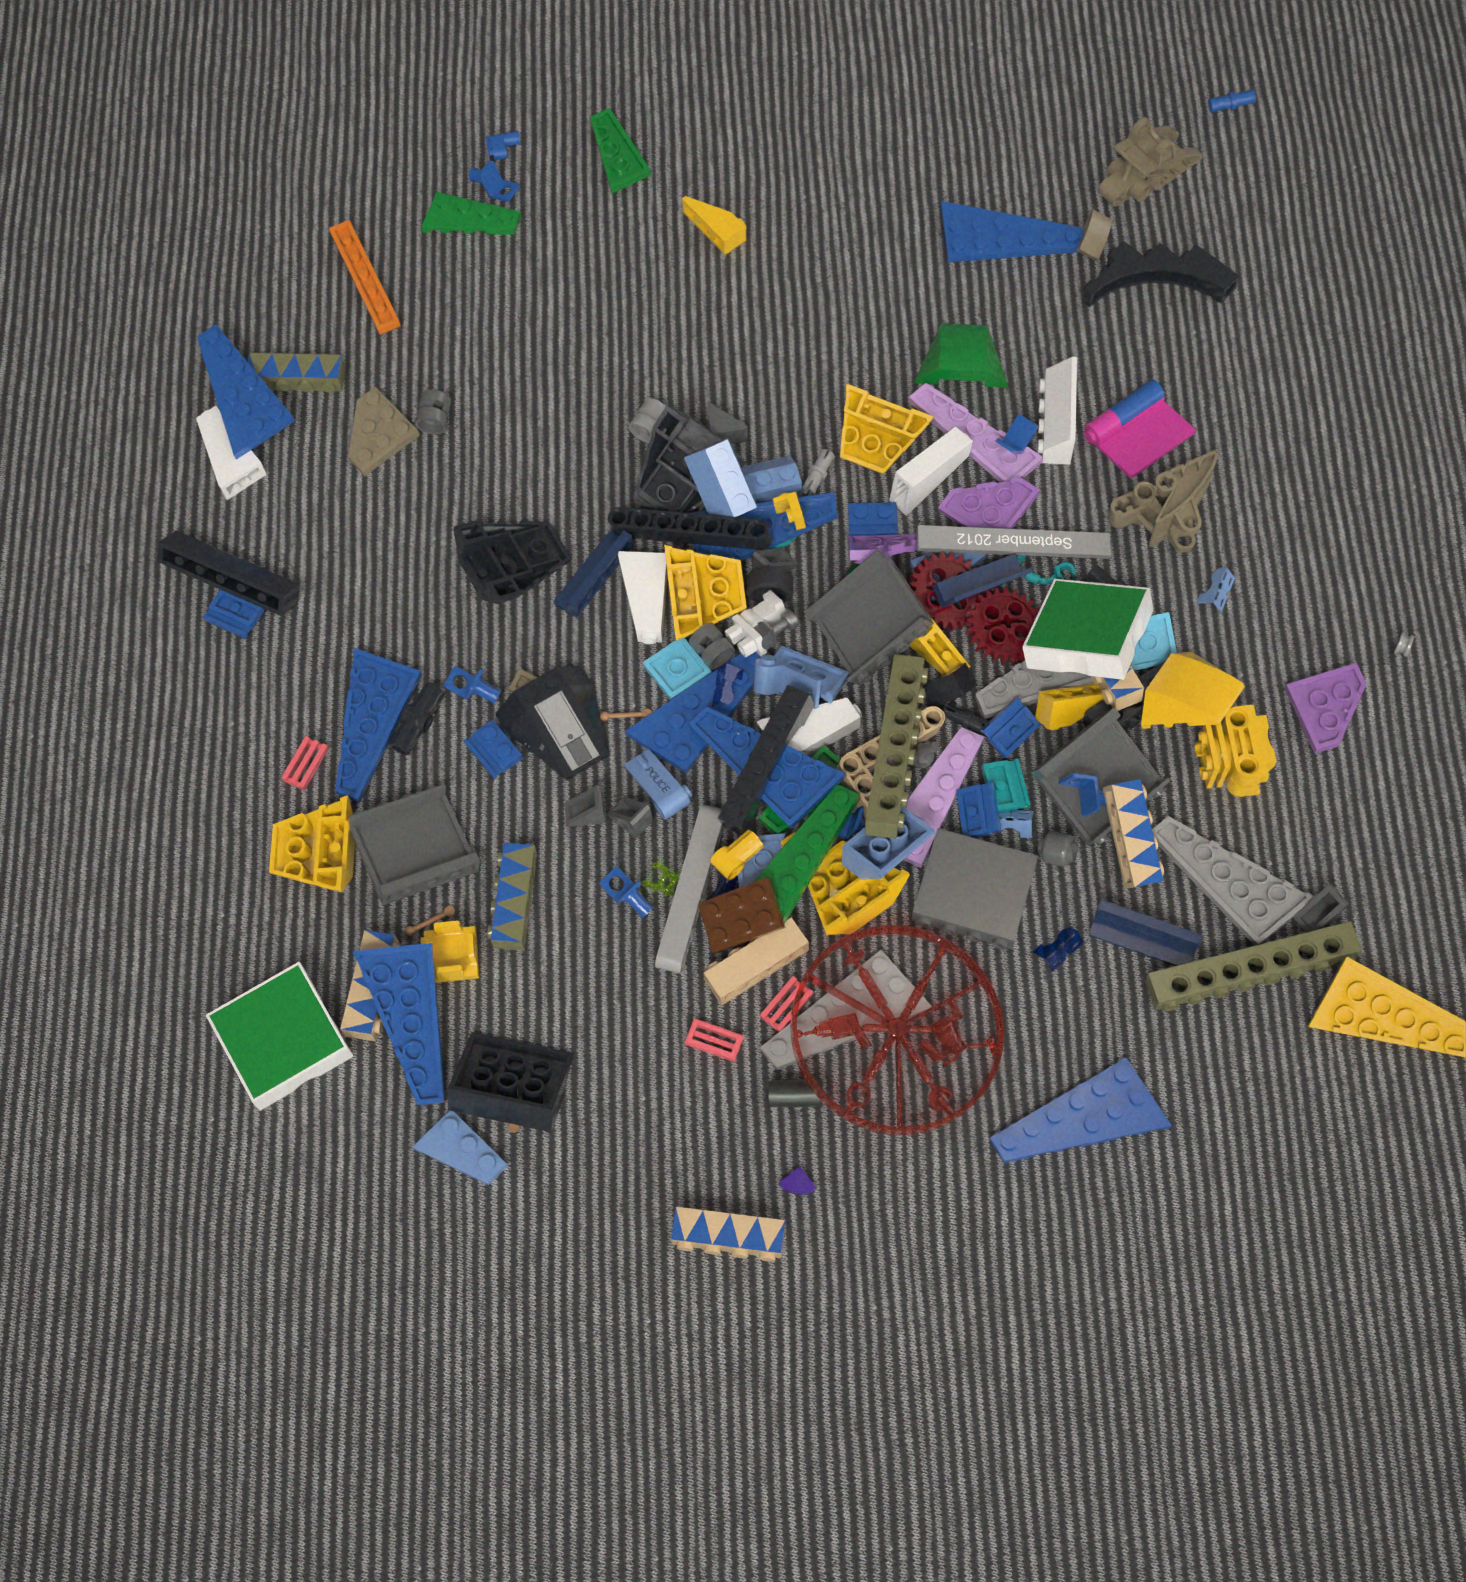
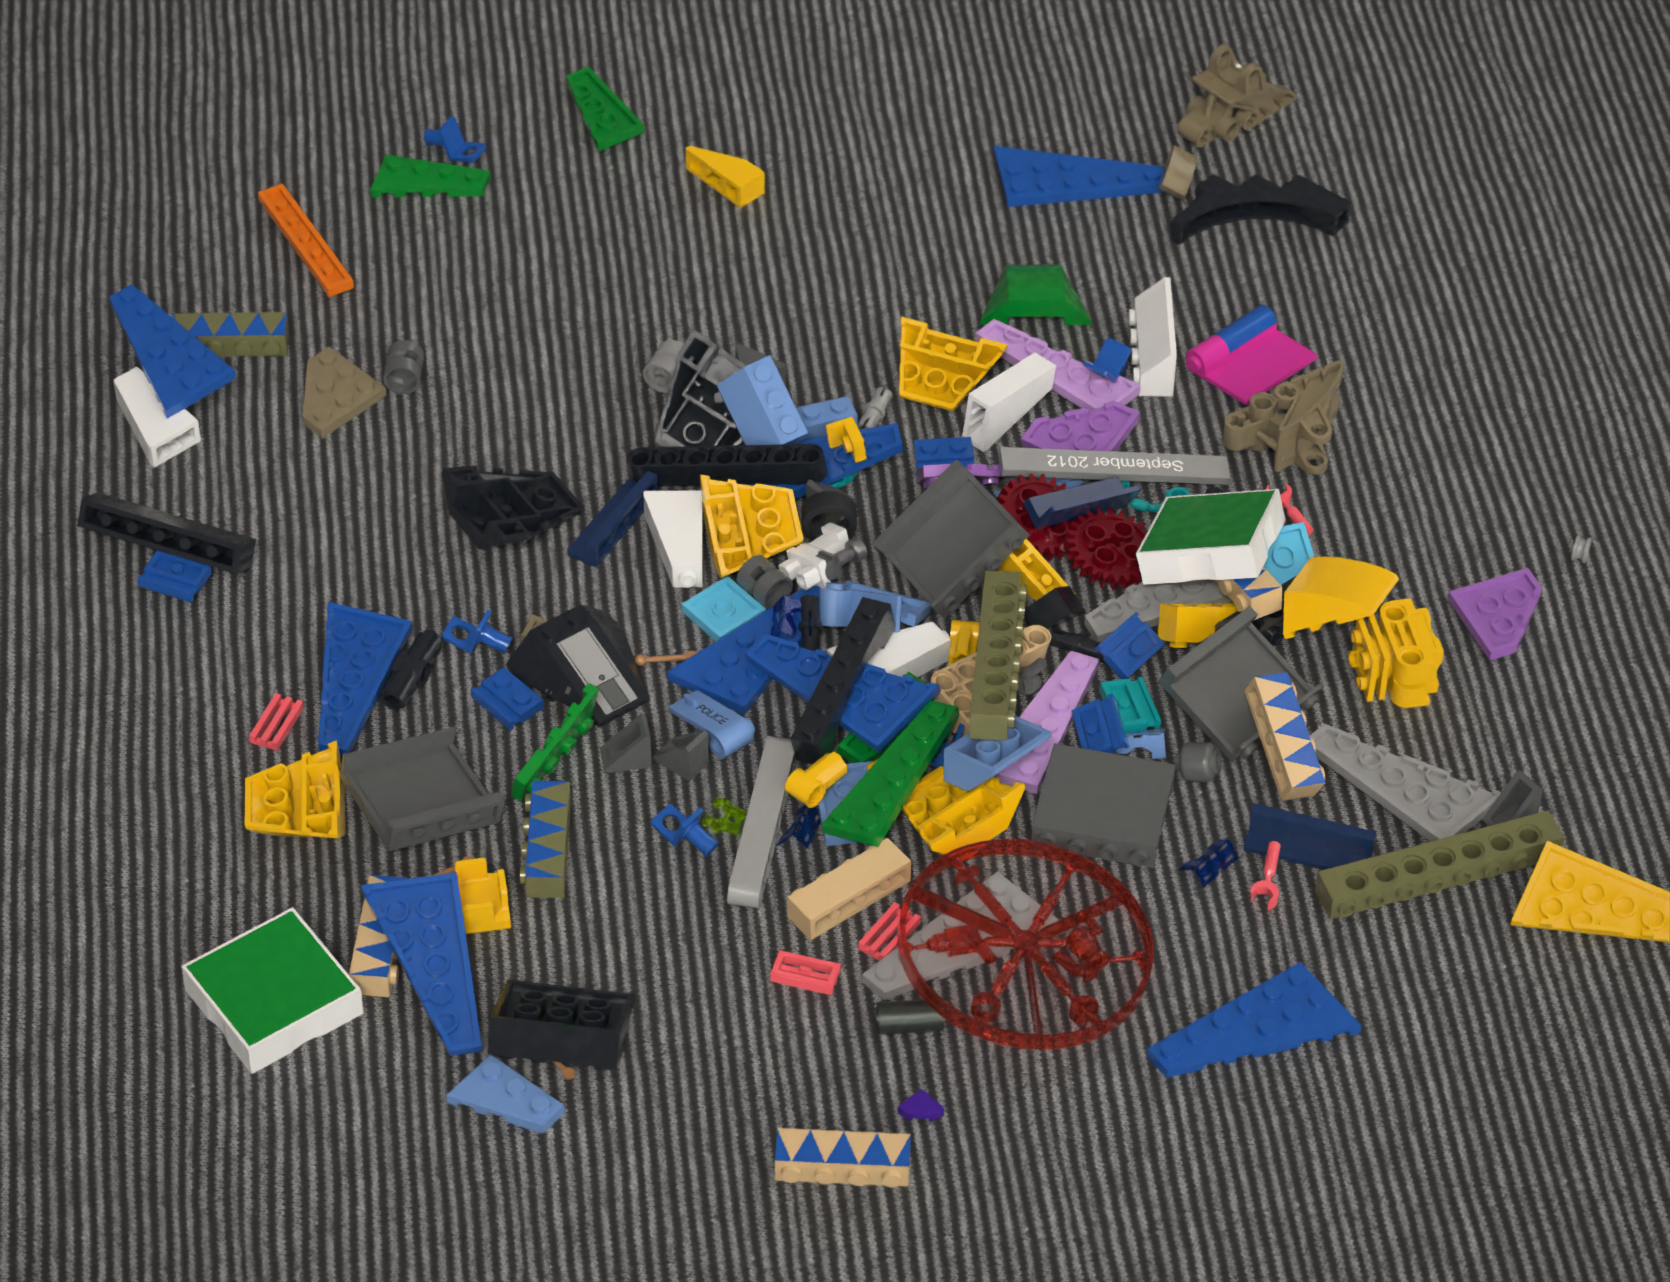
camera: 10 degrees left, 20 degrees down
(497, 143) = (458, 106): blue piece -> none
(526, 804) = (558, 742): none -> green wing
(741, 915) = (828, 835): reddish brown plate -> none
(745, 712) = (810, 607): none -> black pin
(872, 716) = (963, 639): none -> yellow piece
(1090, 796) = (1228, 695): blue bracket -> none
(1108, 962) = (1266, 886): none -> coral piece
(1160, 591) = (1293, 513): none -> coral piece
(1217, 578) = (1365, 508): medium blue piece -> none
(1232, 100) = (1324, 41): blue pin -> none

